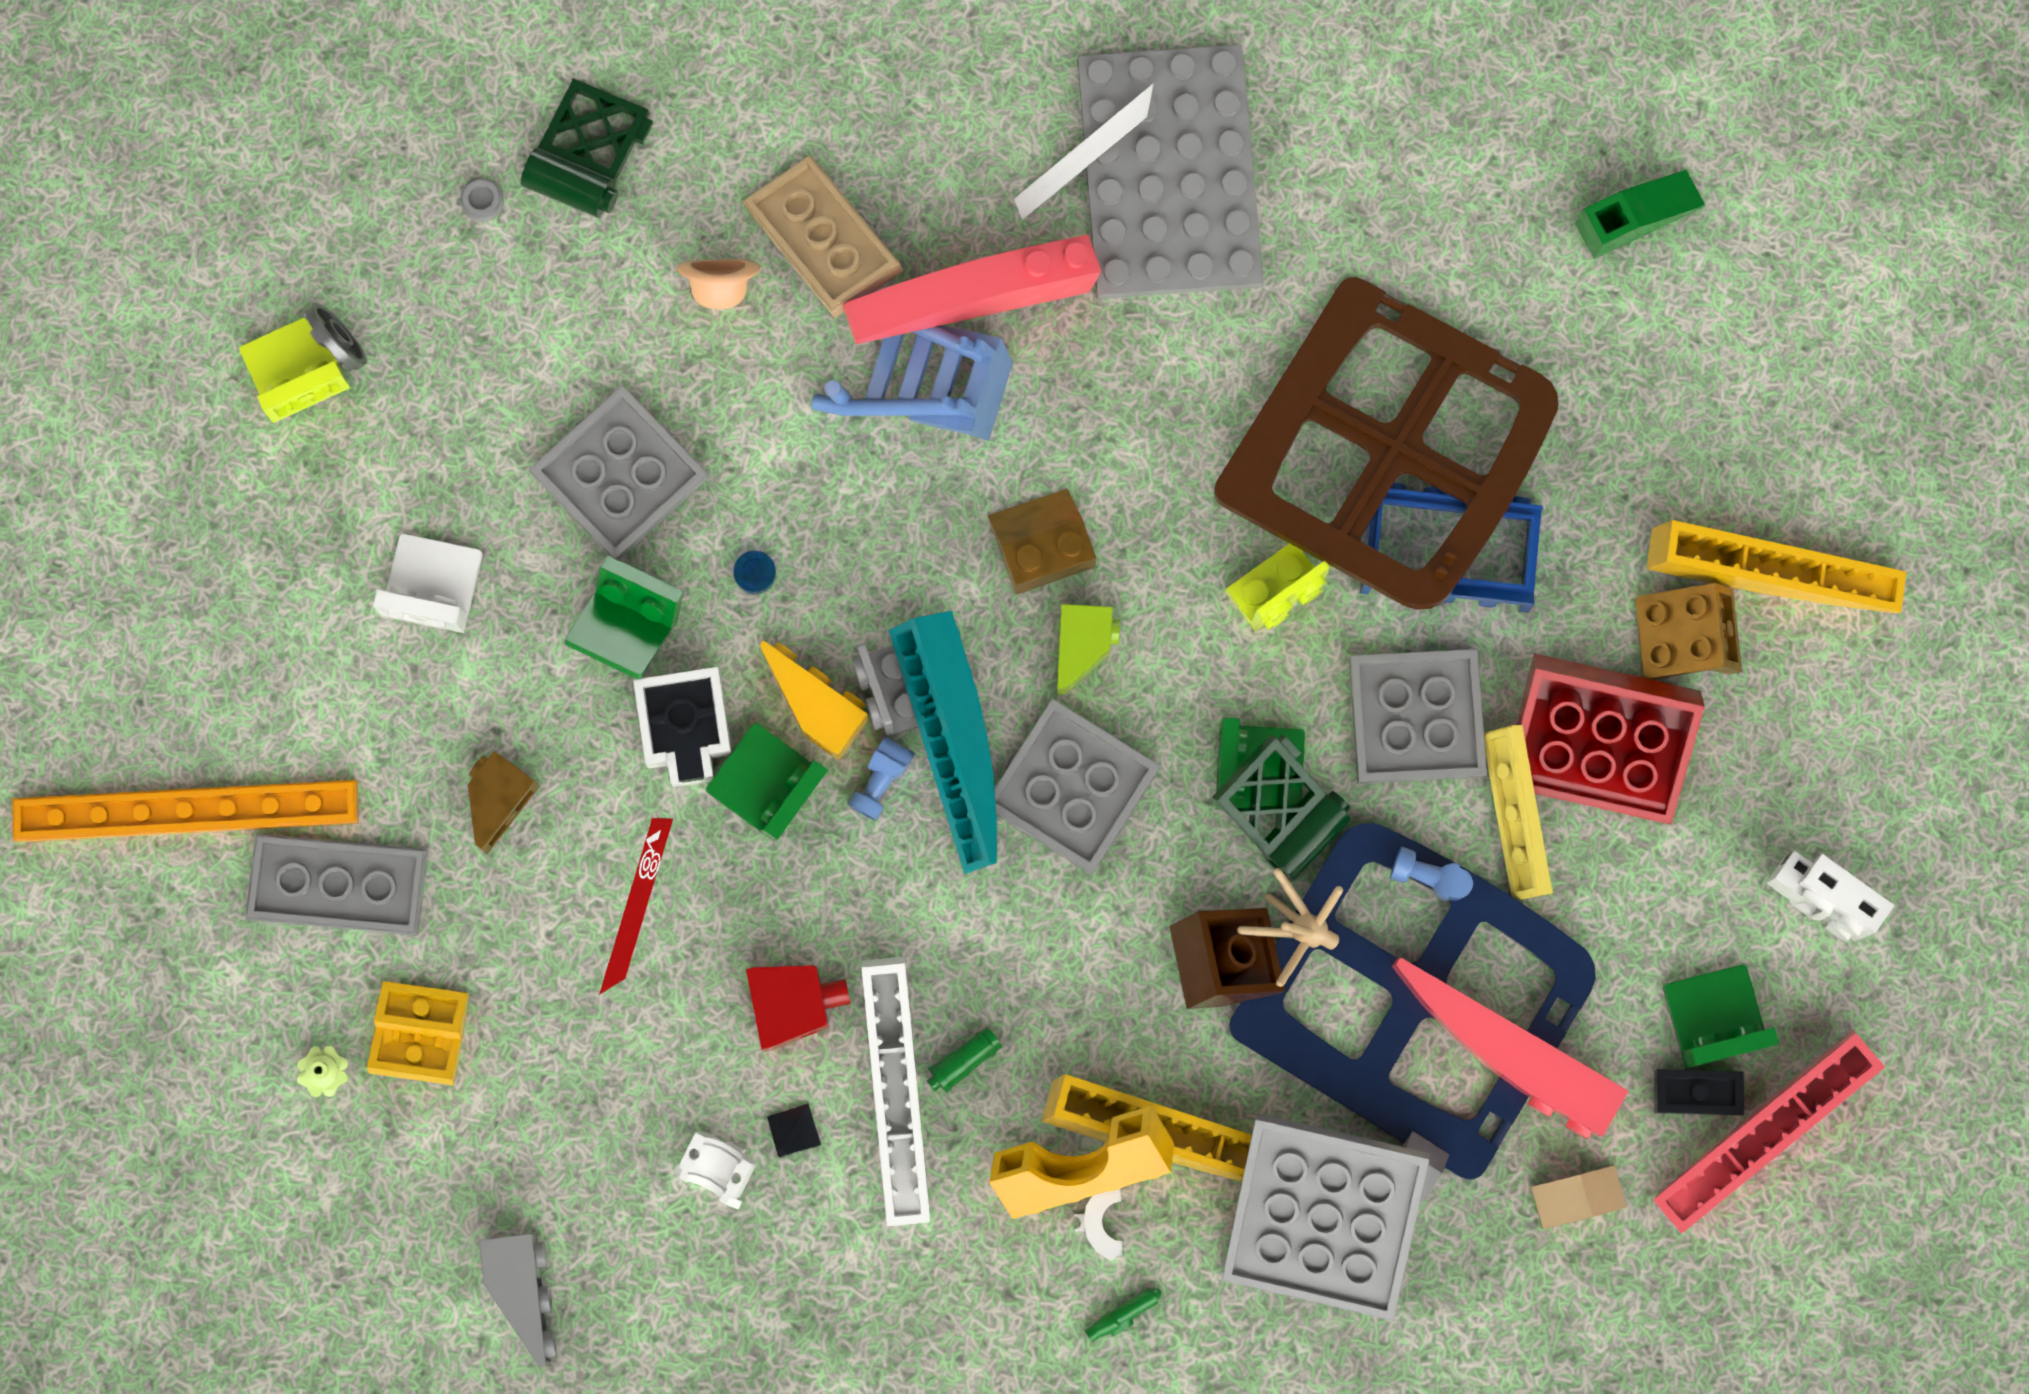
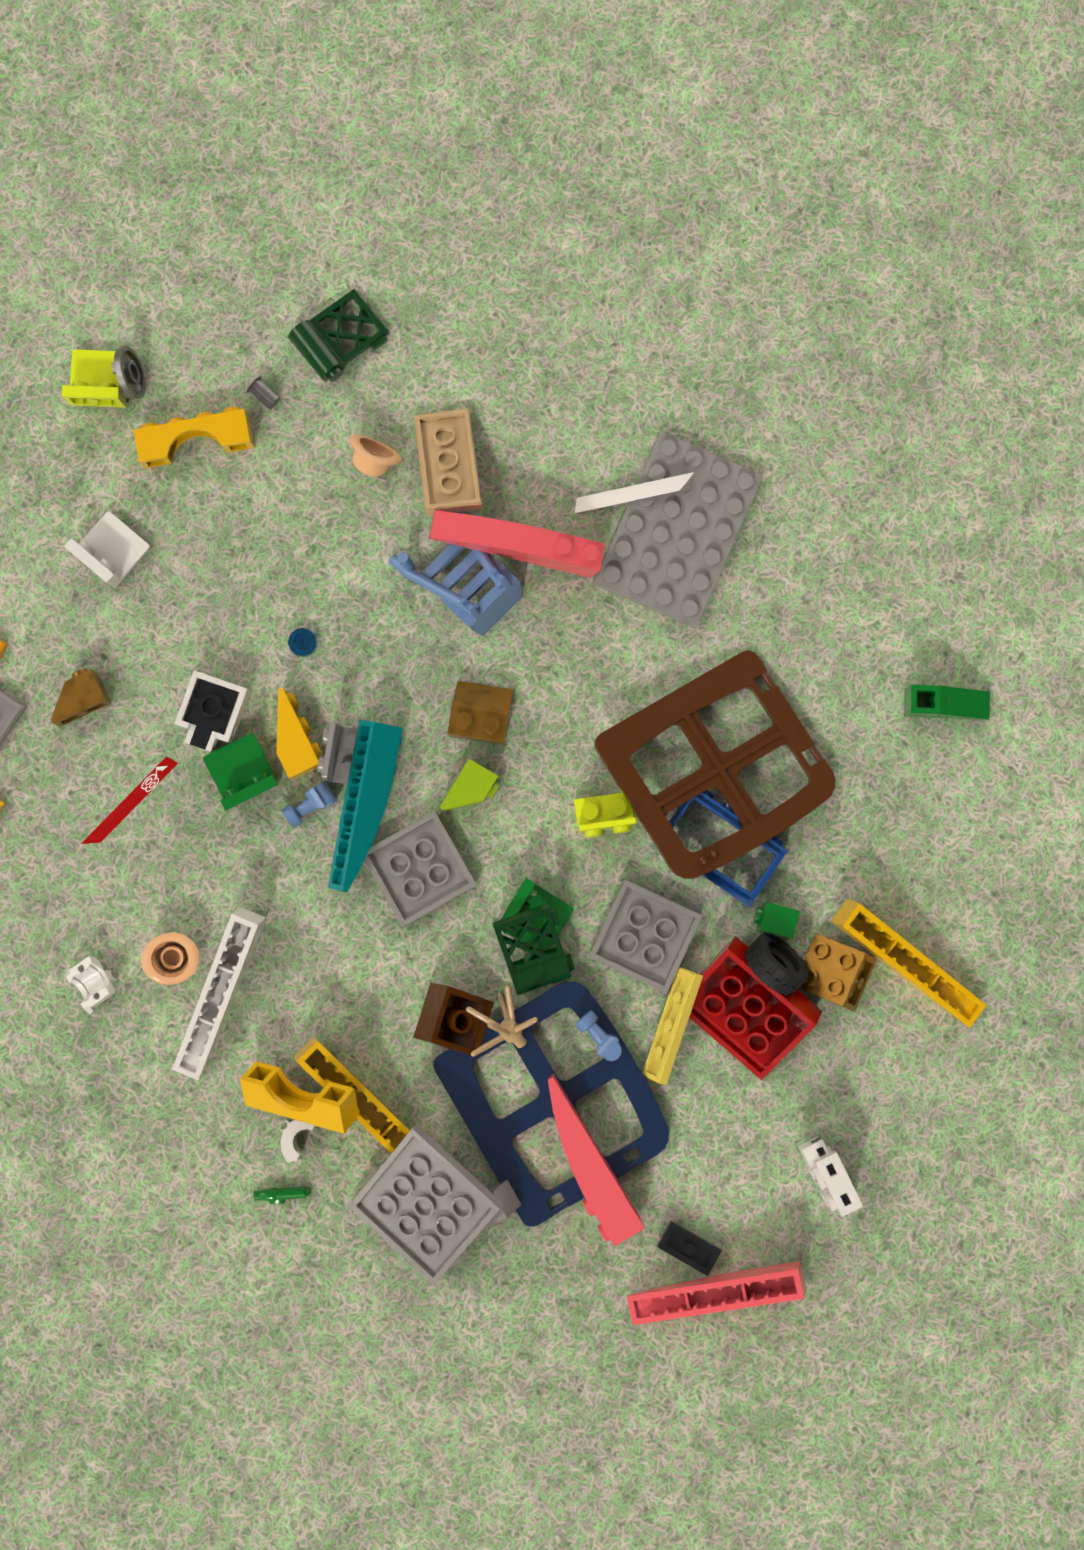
camera: 30 degrees right, 5 degrees up
(482, 200) = (261, 334): light grey tile -> none
(505, 345) = (159, 443): none -> yellow arch
(527, 274) = (263, 393): none -> flat silver piece
(619, 473) = (253, 541): light grey plate -> none
(626, 618) = (209, 632): green bracket -> none
(792, 1003) = (186, 909): red torso -> none
(793, 1131) = (145, 987): black slope -> none
(807, 1076) = (170, 958): none -> light nougat hat
(965, 1059) = (268, 996): green piece -> none
(1576, 605) = (776, 920): none -> green brick
(1578, 1197) = (584, 1270): tan slope -> none
(1609, 658) = (776, 964): none -> black tyre
(1717, 1016) = (724, 1210): green bracket -> none

